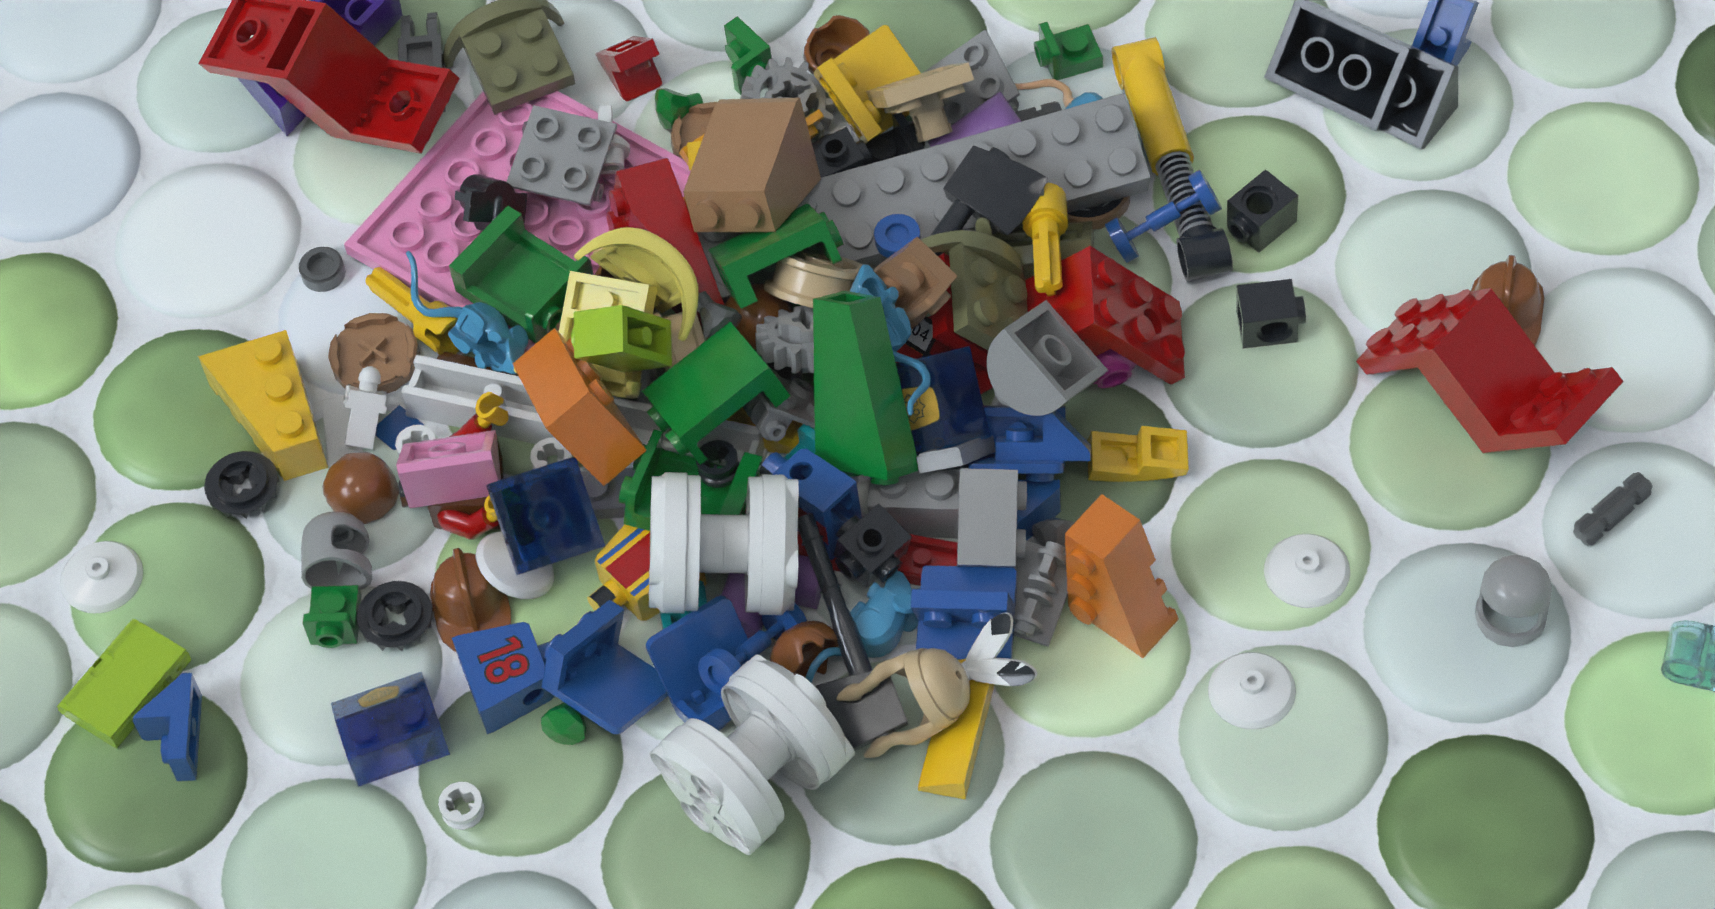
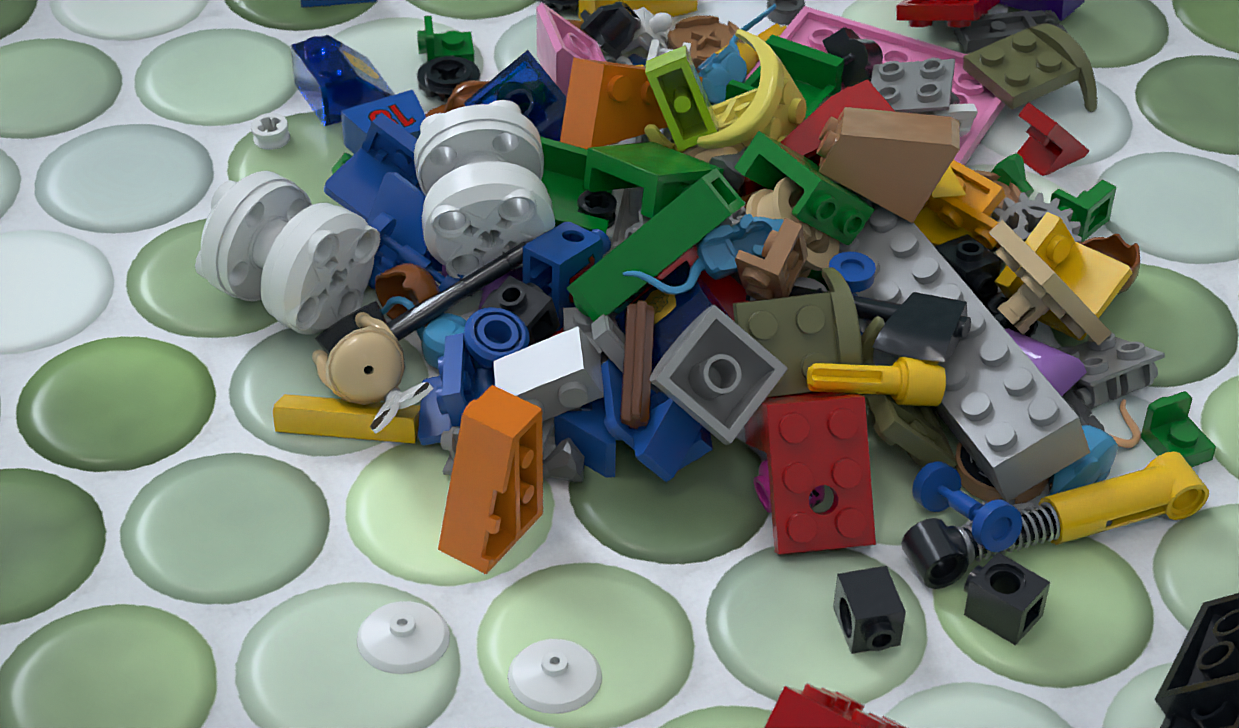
camera: 75 degrees right, 15 degrees down
(331, 539) = (499, 29): light grey helmet -> none
(374, 426) = (611, 27): none -> black piece
(922, 561) = (494, 334): none -> blue brick
(992, 434) = (637, 365): none -> reddish brown axle
(1147, 456) = (675, 521): yellow slope -> none

